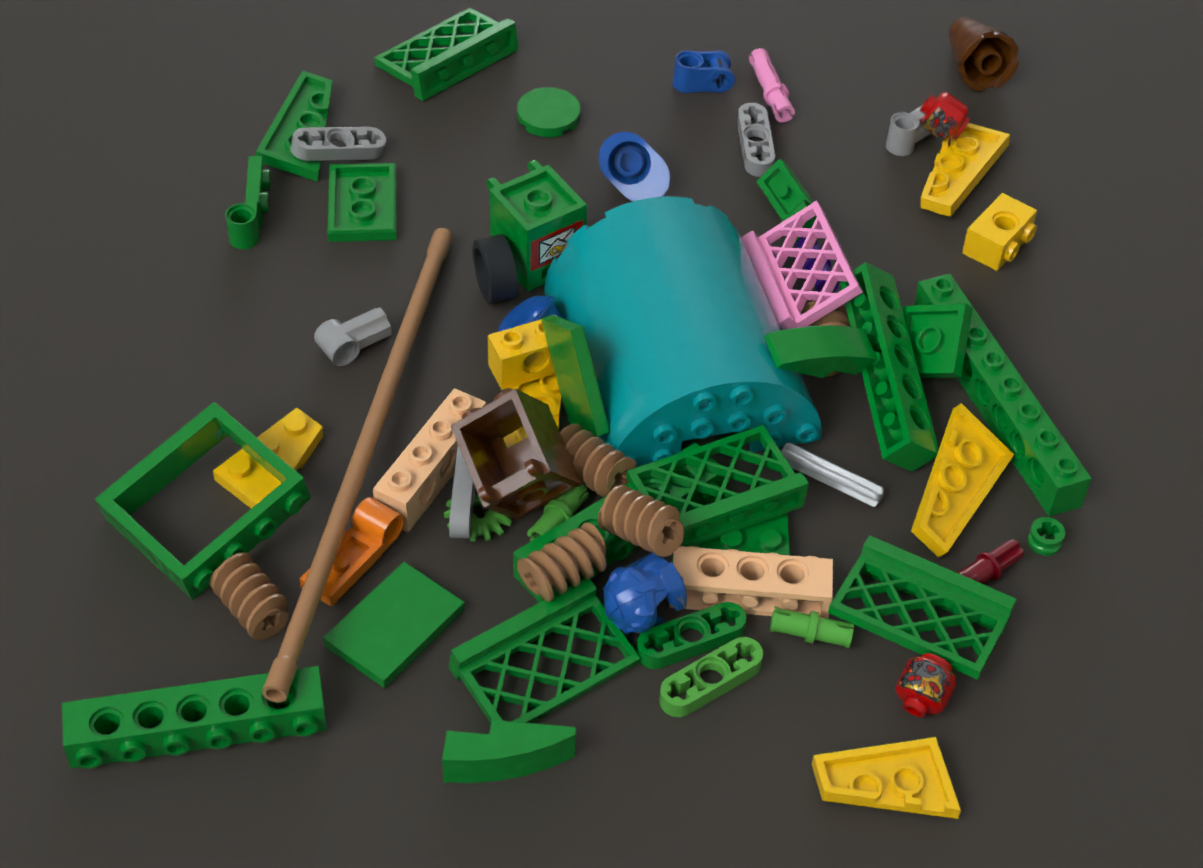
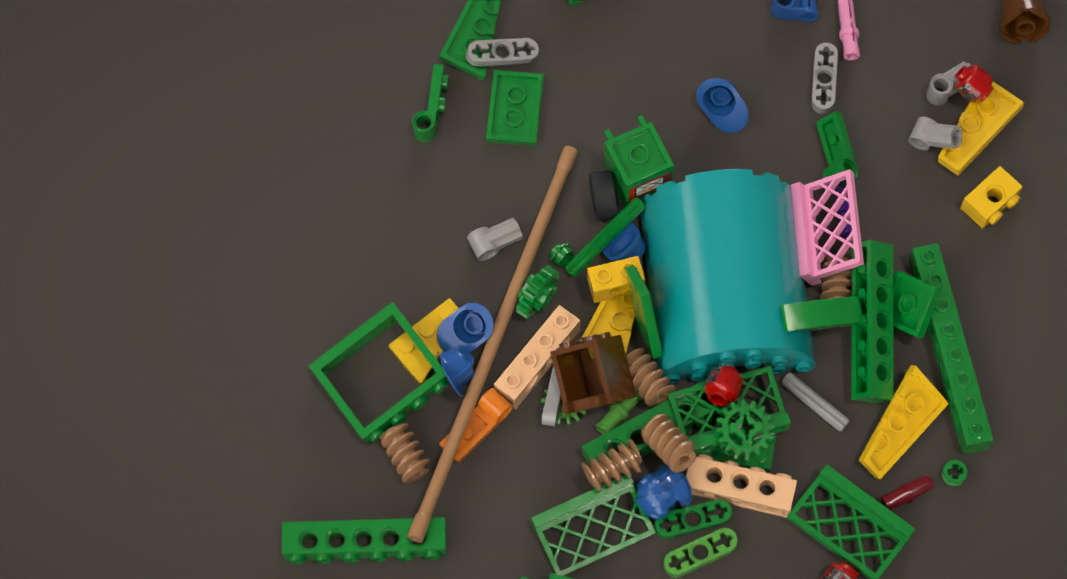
camera: 15 degrees right, 20 degrees up
(319, 475) = (457, 368): none -> blue piece
(323, 432) = (465, 328): none -> blue piece
(393, 624) = (498, 483): green tile -> none
(421, 378) = (537, 292): none -> green gear
(448, 345) = (561, 254): none -> green plate
(504, 316) = (605, 236): none -> green axle
(548, 111) = (667, 31): green tile -> none
(705, 445) = (723, 385): none -> red head
(747, 490) = (733, 430): none -> green gear
(811, 627) = (774, 525): bright green pin -> none
(903, 174) = (930, 133): none -> light grey piece

